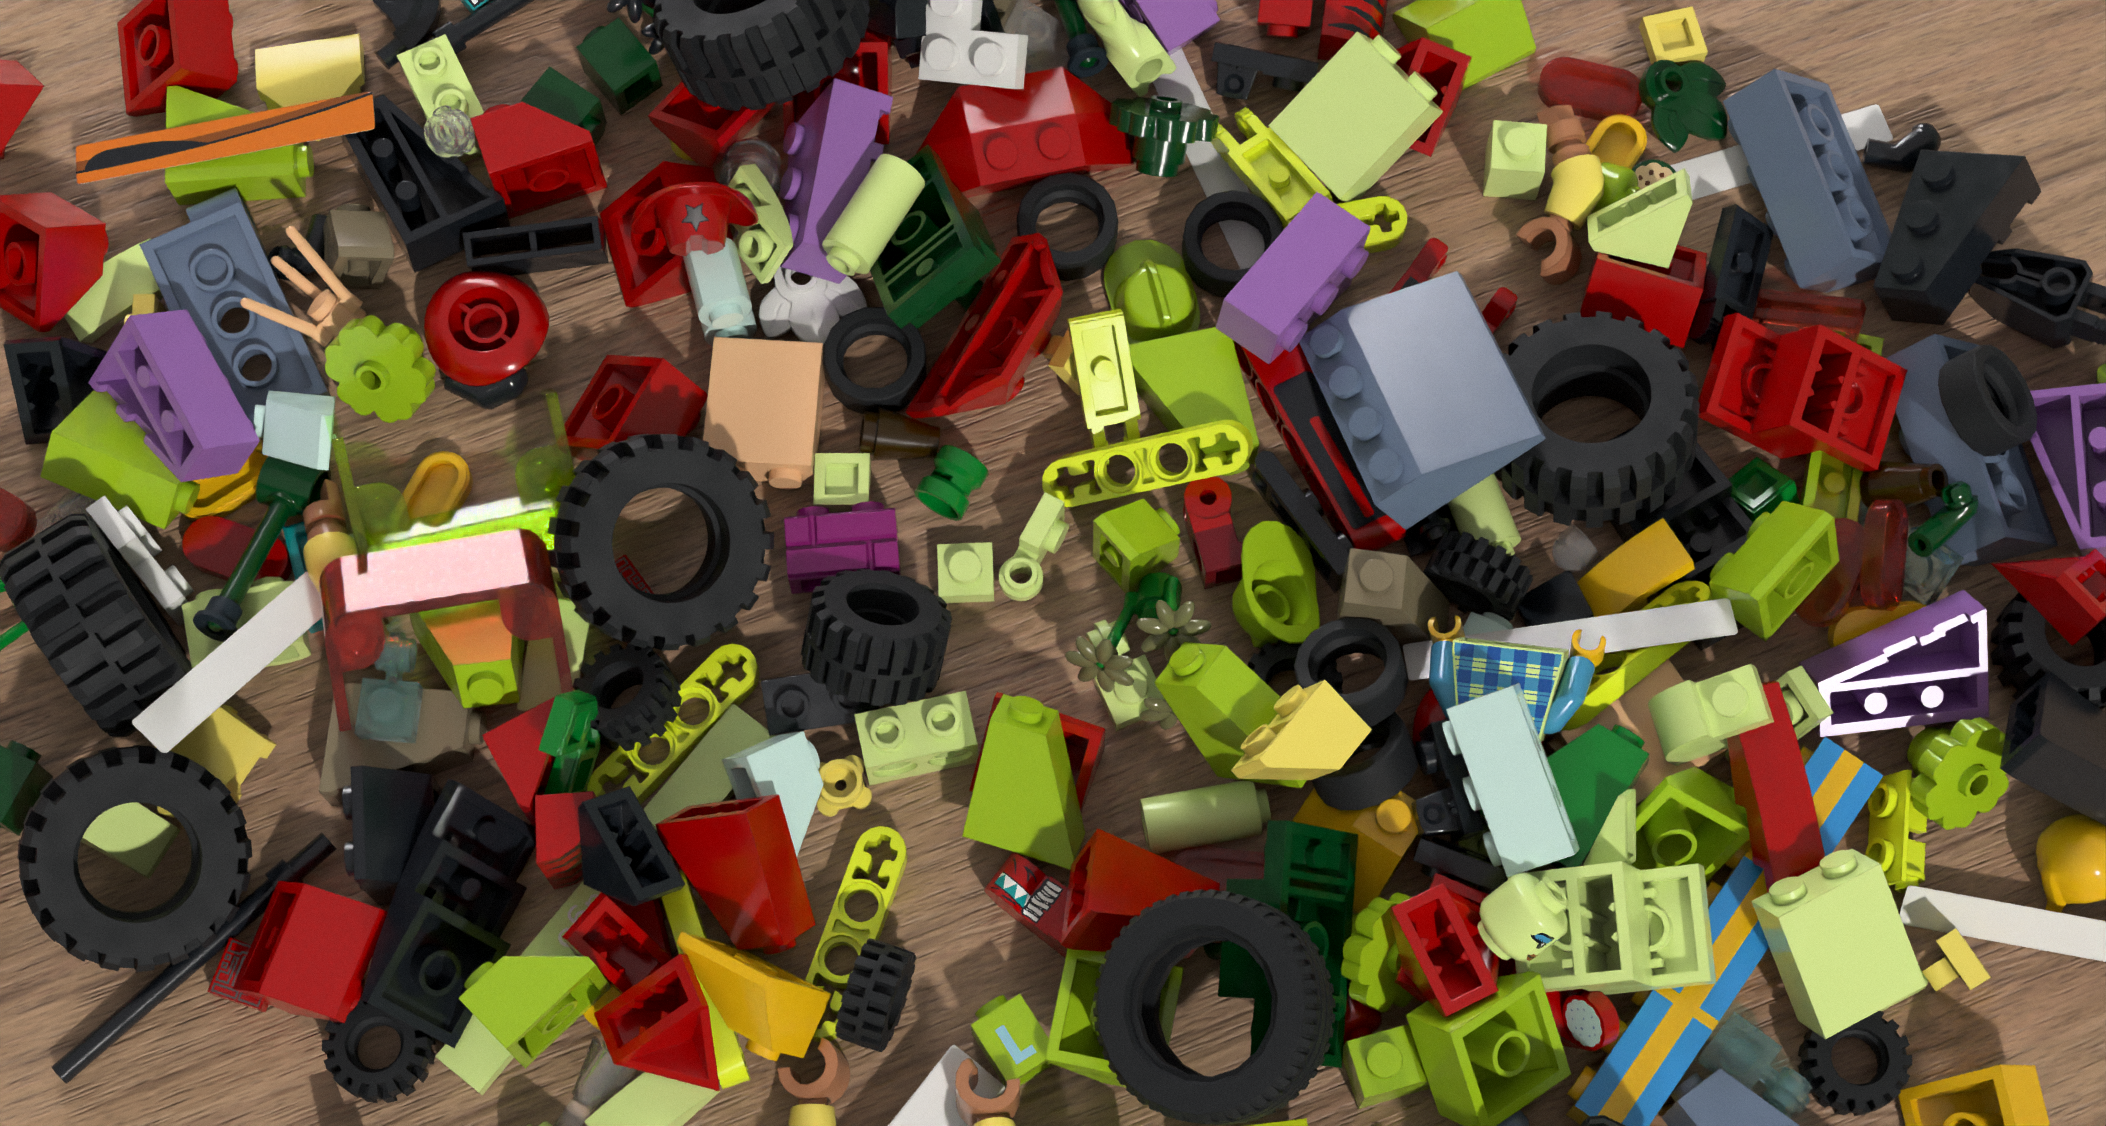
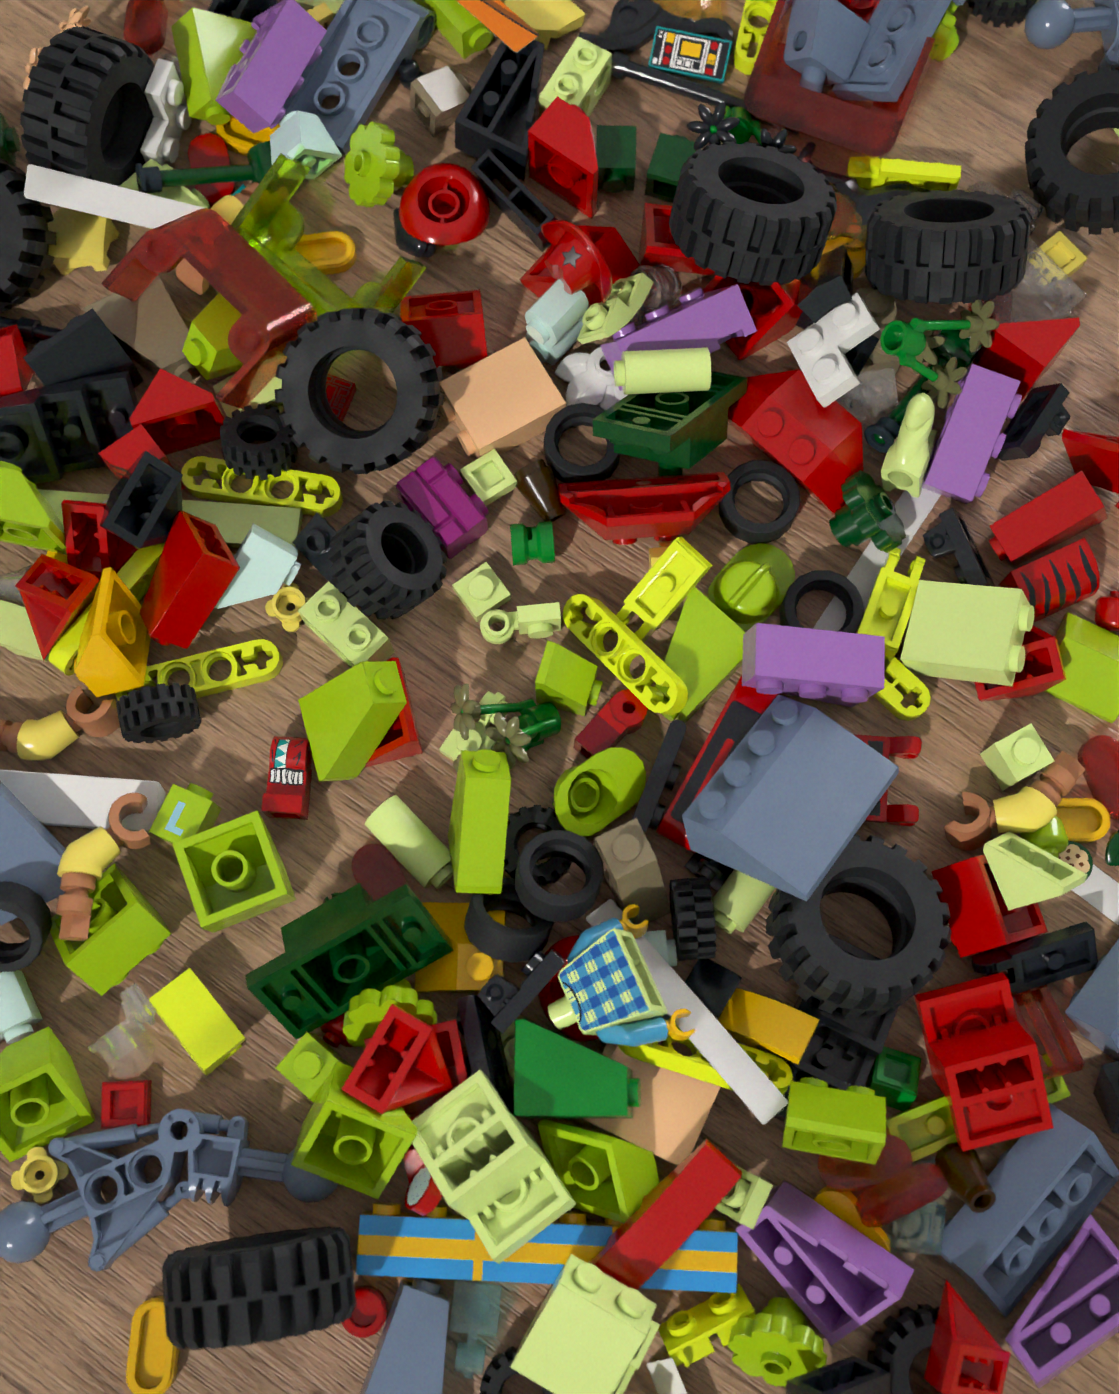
camera: 55 degrees right, 5 degrees up
(328, 310) = (392, 114): light nougat plant -> none
(391, 706) = (157, 310): clear light blue plate -> none
(449, 132) = (542, 93): clear plate -> none
(571, 741) = (197, 424): green tile -> none
(1115, 883) = (314, 835): red slope -> none
(1131, 996) = (204, 890): black tyre -> none
(1305, 739) = (484, 874): light yellow slope -> none
(1510, 781) = (540, 1031): light aqua brick -> none
(1523, 917) = (447, 1099): yellowish green head -> none
(1574, 550) = (761, 972): clear hinge -> none
(1618, 834) = (555, 1131): yellowish green piece -> none
(1701, 715) = (686, 1141): yellowish green brick -> none
(1945, 523) = (969, 1229): dark green arm -> none
(1987, 400) = (1049, 1192): black tyre -> none

